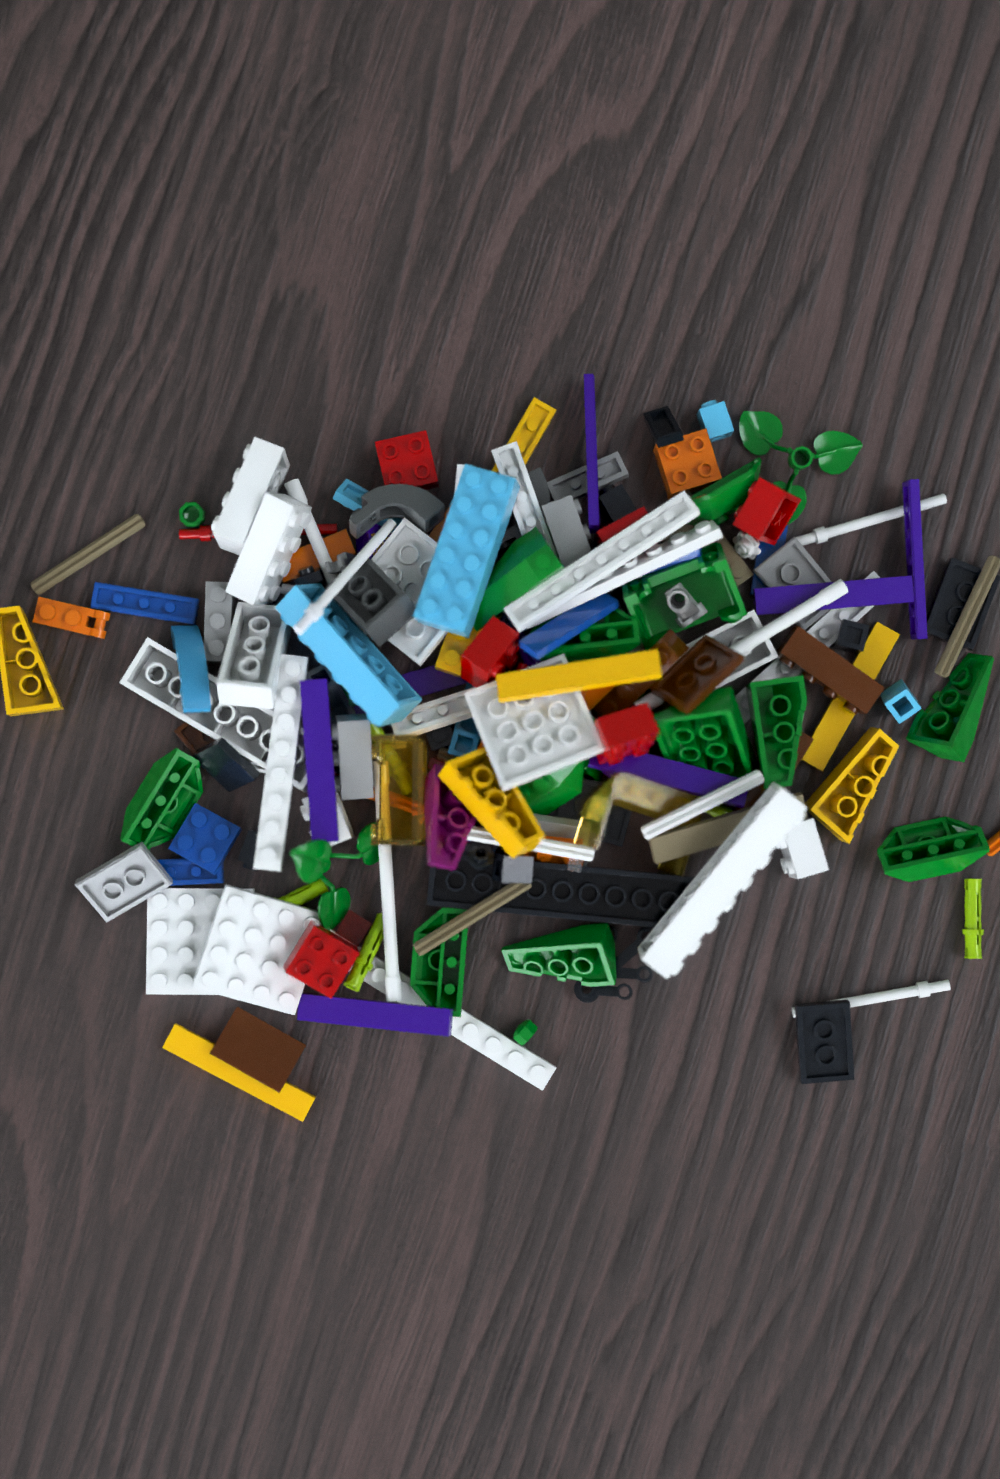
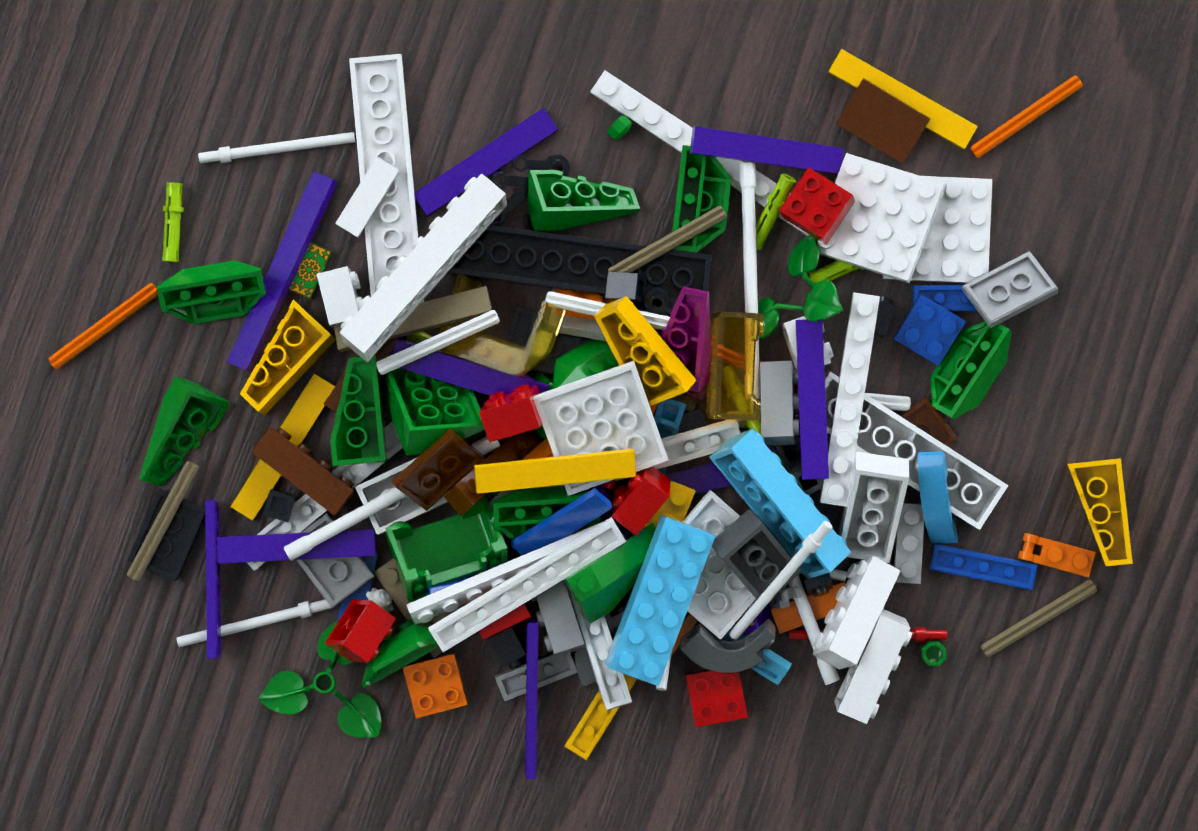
camera: 175 degrees left, 0 degrees up
(112, 1059) = (1026, 116): none -> orange axle
(226, 765) = (905, 400): black tile -> none
(354, 928) = (784, 236): clear red plate -> none
(574, 865) = (565, 288): clear piece -> none
(658, 993) = (486, 161): none -> dark purple tile
(663, 426) = (458, 723): black tile -> none
(686, 611) = (443, 536): light grey plate -> none
(715, 419) = (405, 728): medium azure brick -> none
(762, 990) = (384, 133): none -> white plate
(778, 951) = (367, 197): none -> white tile
(824, 1041) = (325, 107): black plate -> none
(830, 882) = (306, 278): none -> tile
(859, 873) = (282, 271): none -> dark purple tile
(900, 701) = (234, 439): medium azure brick -> none

